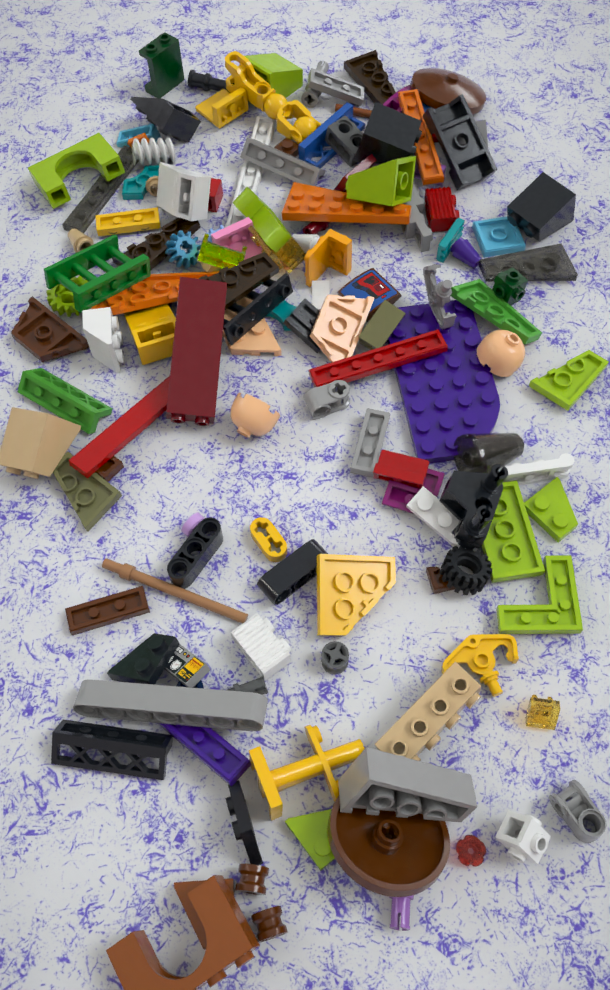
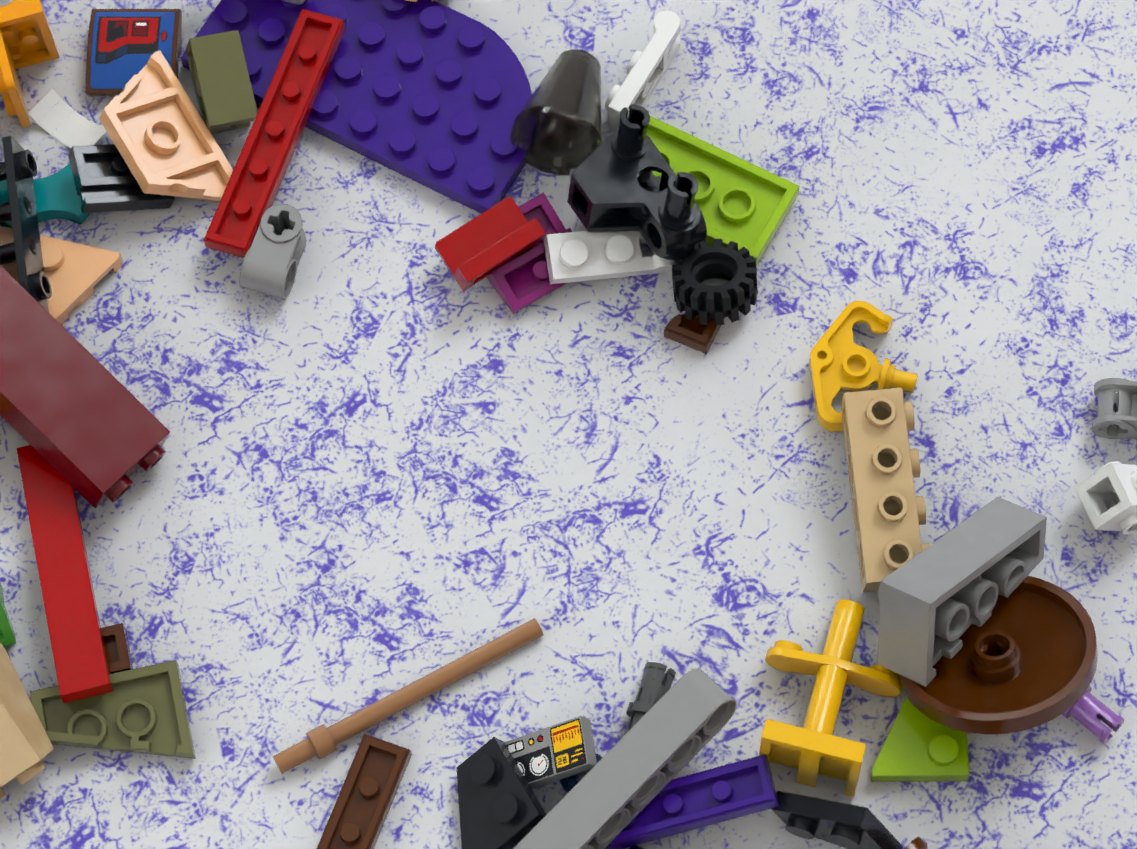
camera: 50 degrees left, 5 degrees up
(191, 523) = (326, 593): lavender tile -> none
(195, 542) = (373, 600): black beam -> none
(252, 416) = (217, 377): light nougat cylinder -> none
(261, 646) = (602, 631): white brick -> none
(272, 536) = (438, 510): yellow beam -> none
(291, 572) = (523, 507): black beam -> none
(335, 651) = (702, 538): dark grey wheel -> none
(349, 589) = (616, 453): yellow plate -> none
(370, 442) = (402, 251): light grey plate -> none
(478, 847) = (1085, 563): clear red plate -> none
(542, 713) = (984, 349): clear yellow tile -> none
(552, 510) = (716, 103): lime wing -> none
(557, 617) = (872, 215): lime plate -> none

